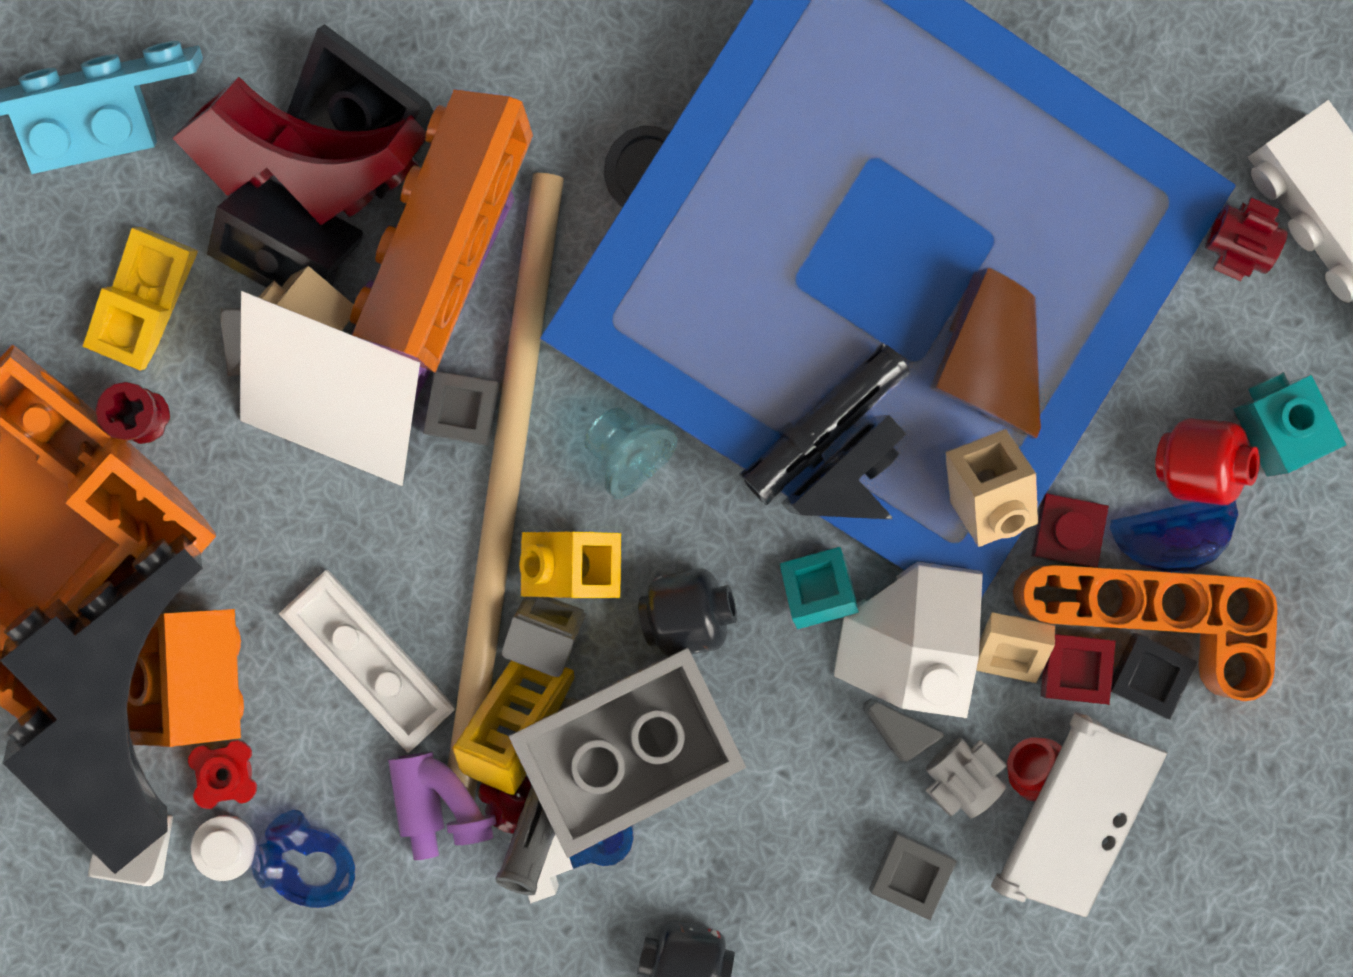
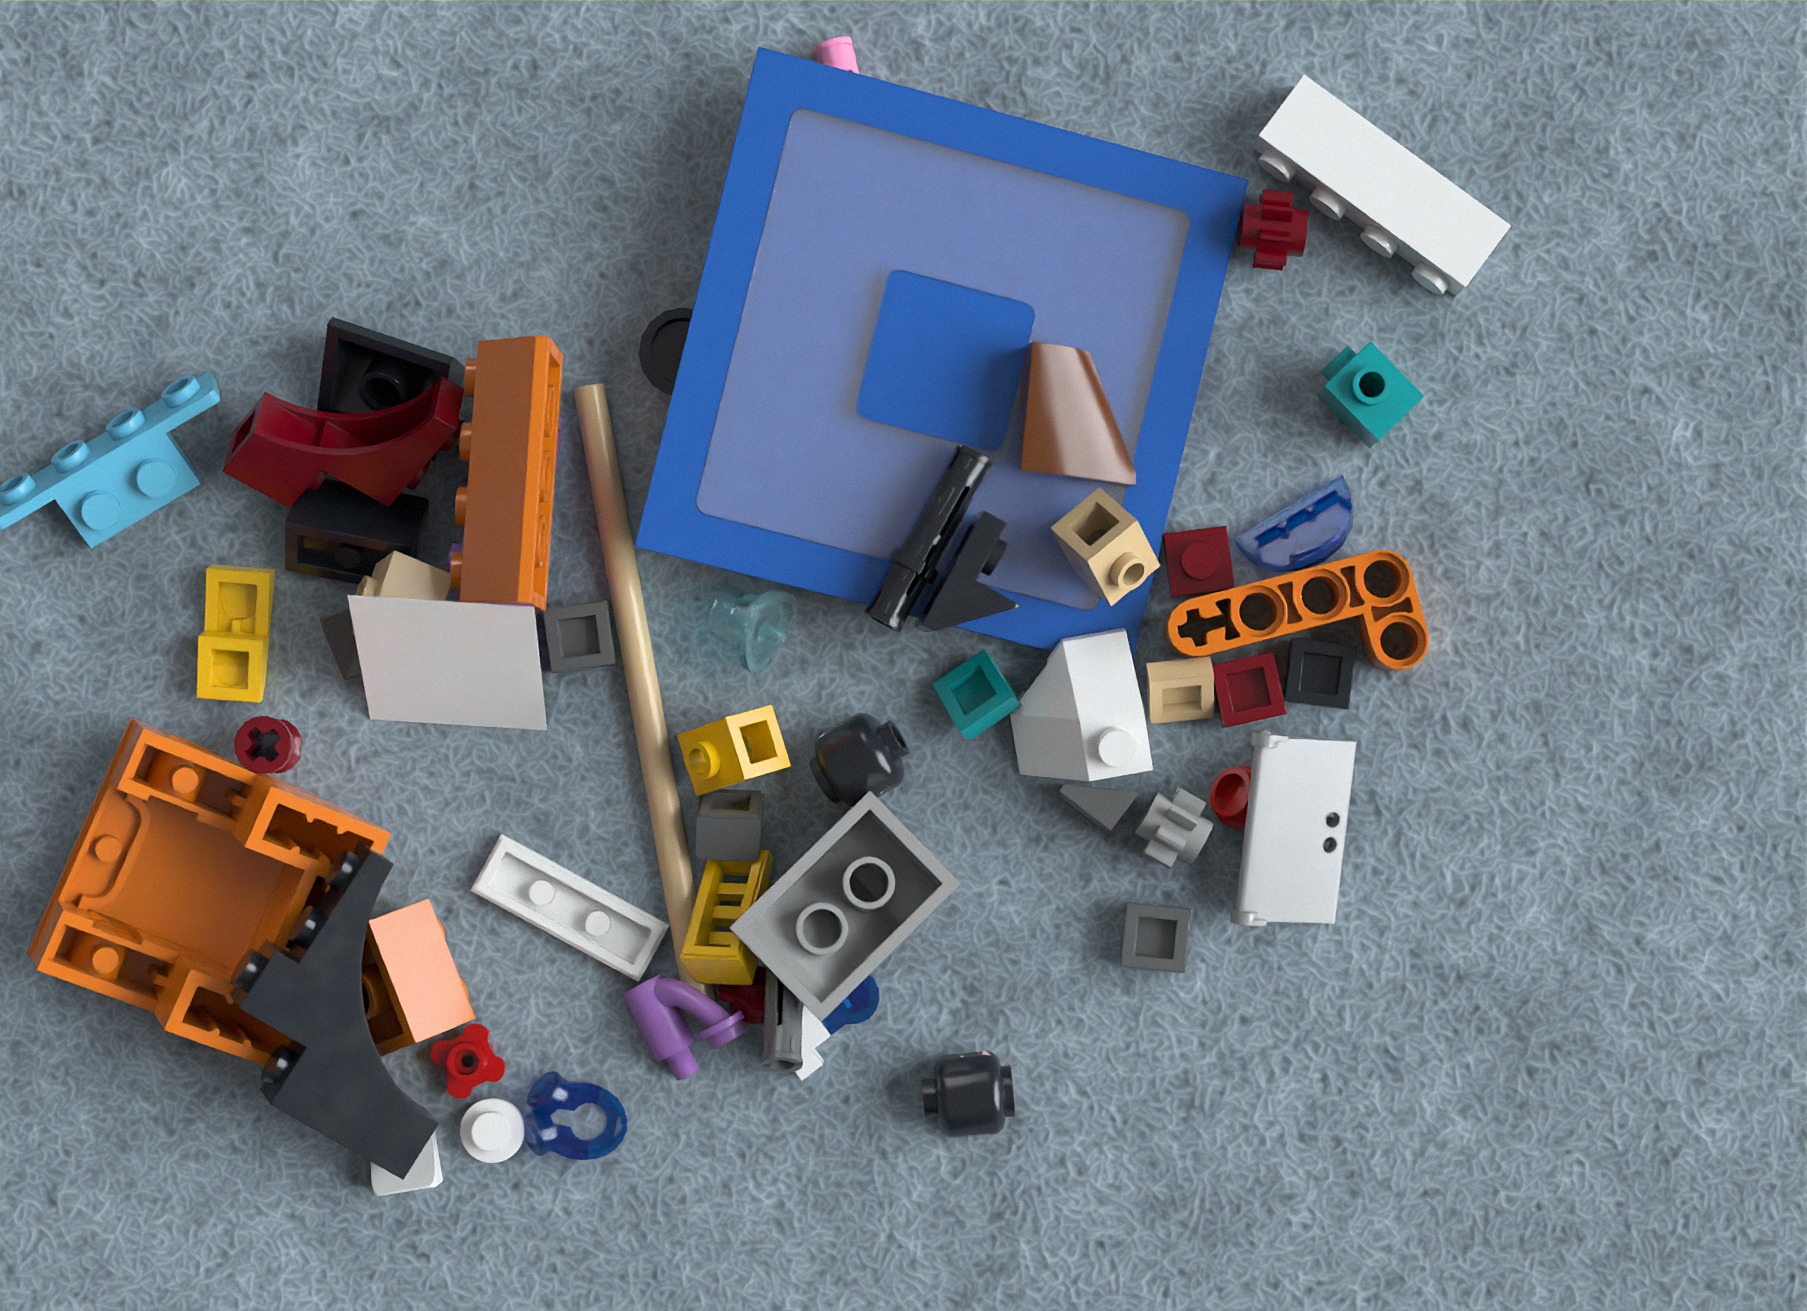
camera: 20 degrees left, 0 degrees up
(1206, 461) = (1302, 453): red head -> none

